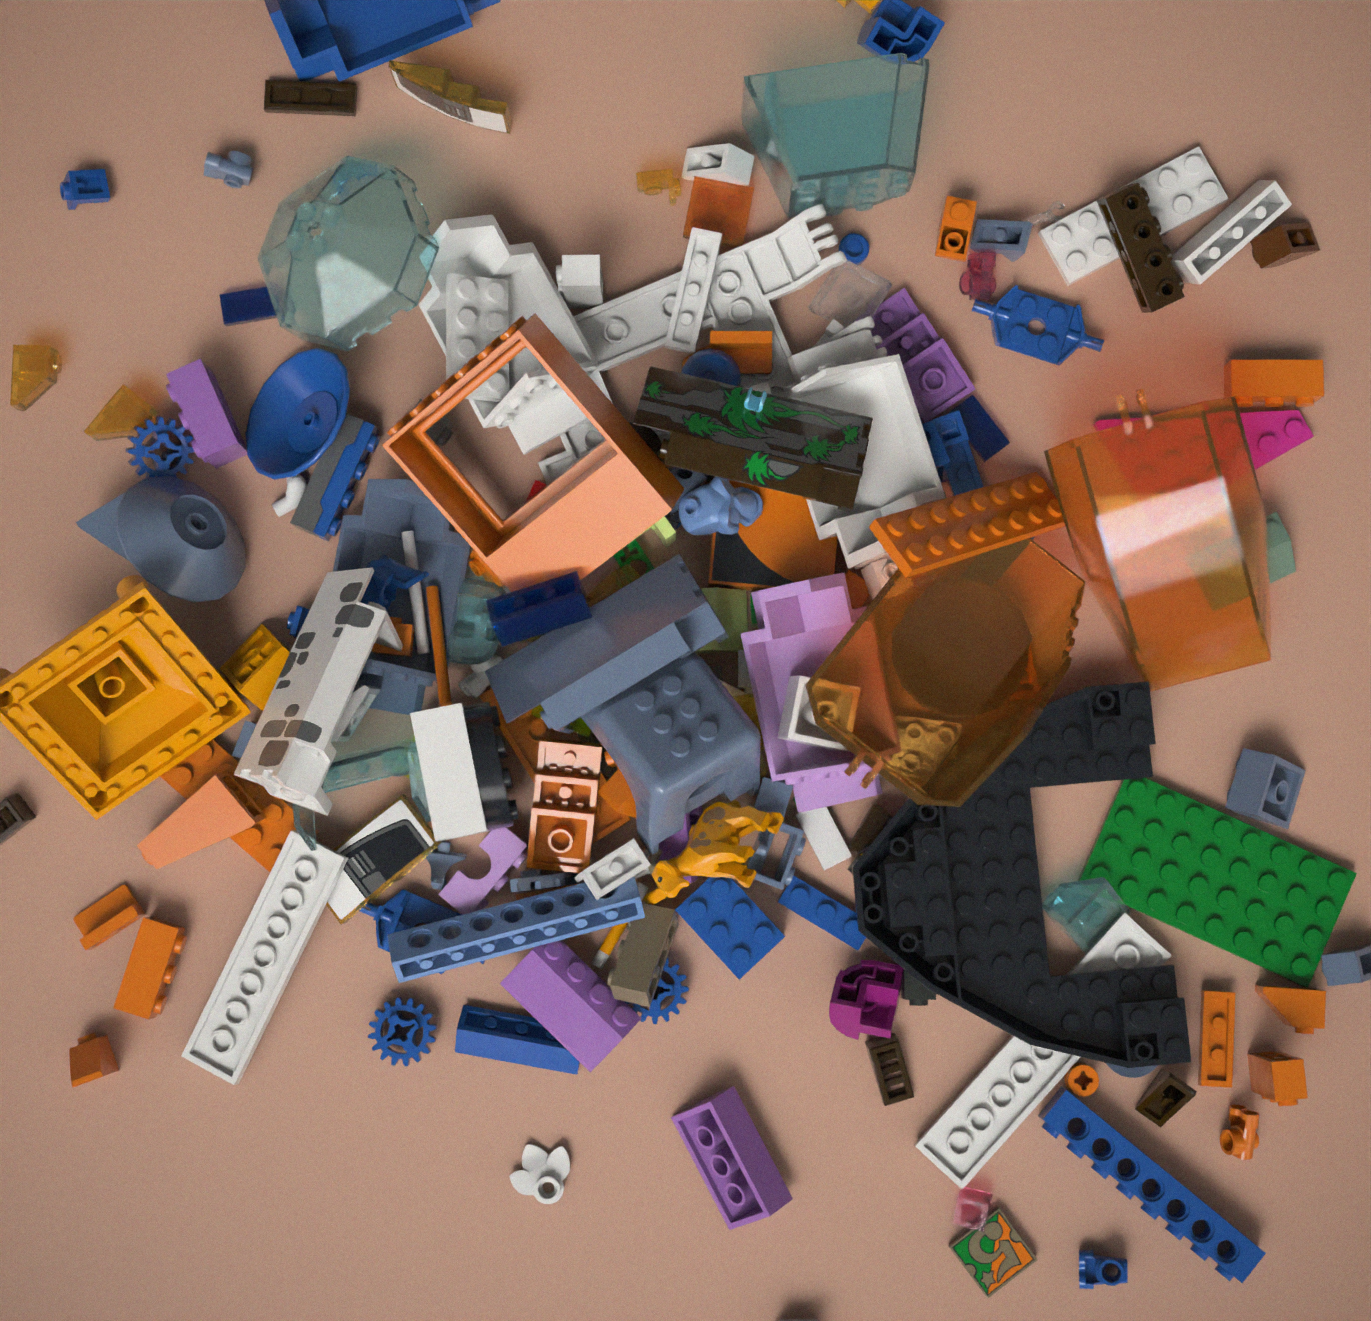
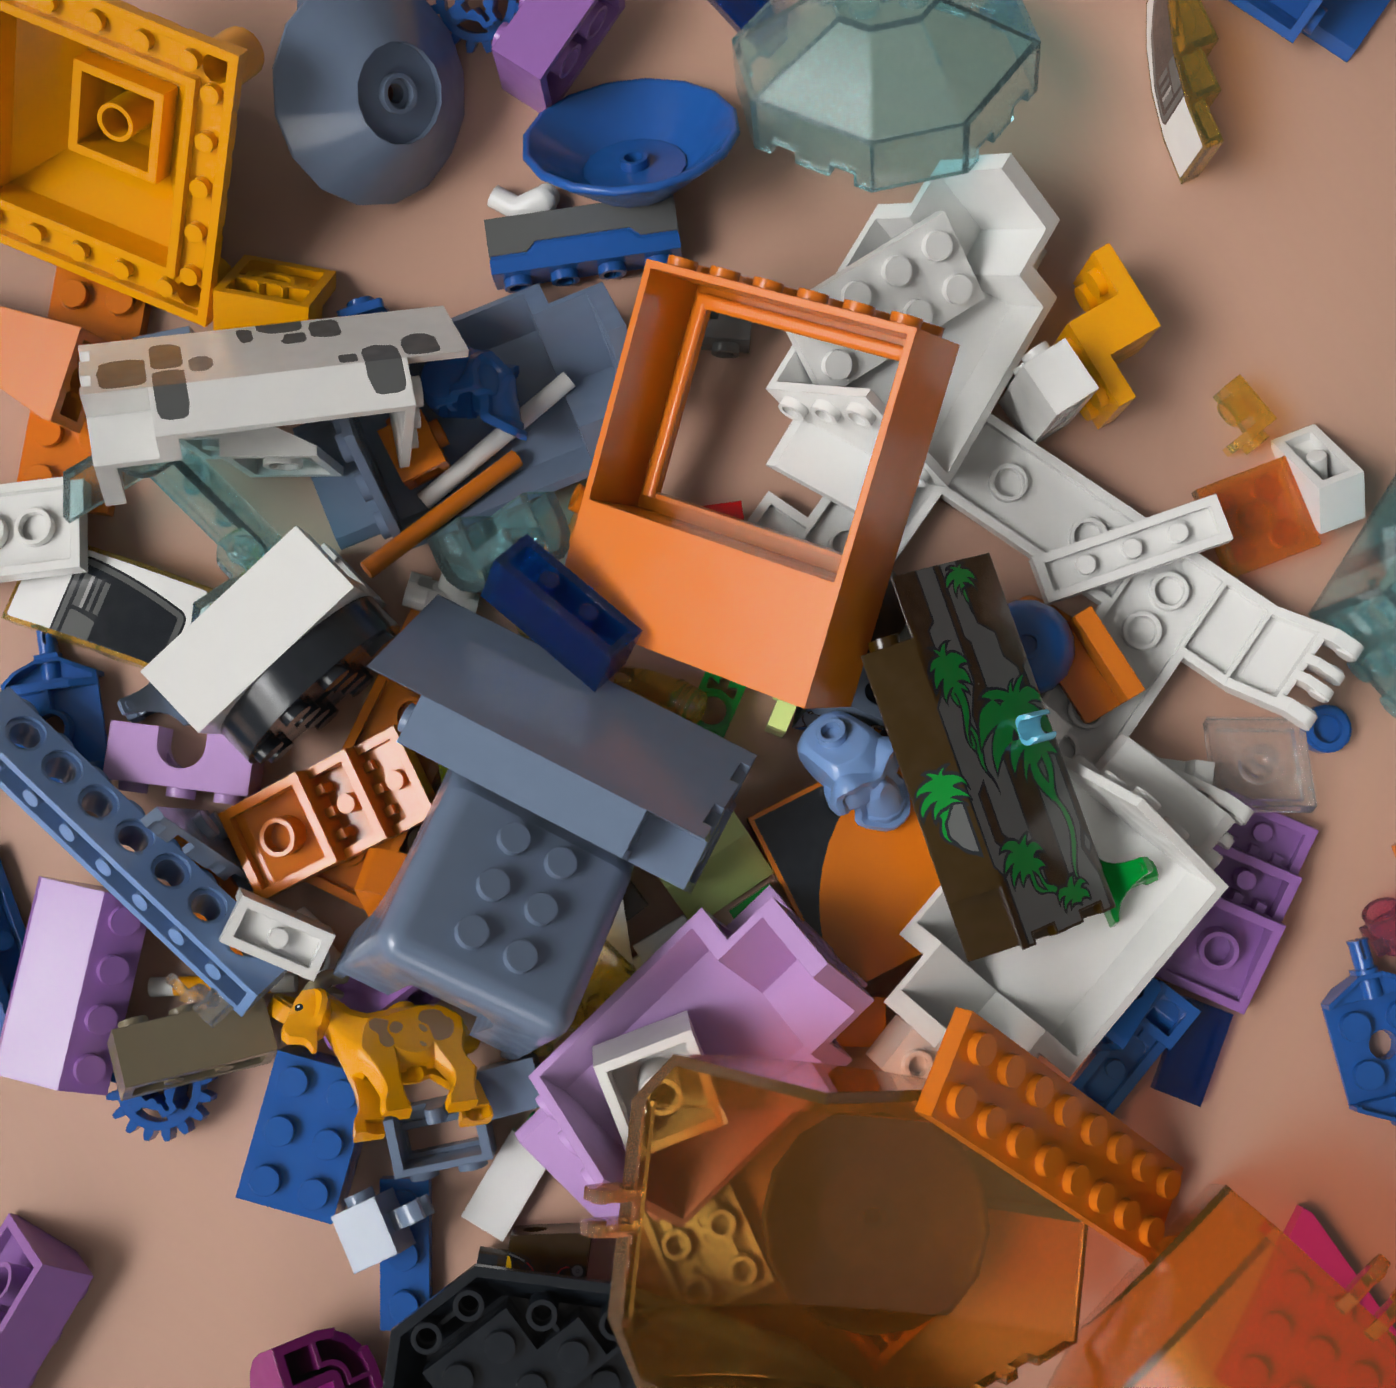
camera: 60 degrees right, 0 degrees up
(570, 227) = (1109, 332): none -> light orange bracket
(628, 928) = (210, 1004): none -> clear piece
(801, 914) = (377, 1226): none -> brick
(862, 402) = (1123, 877): none -> green piece

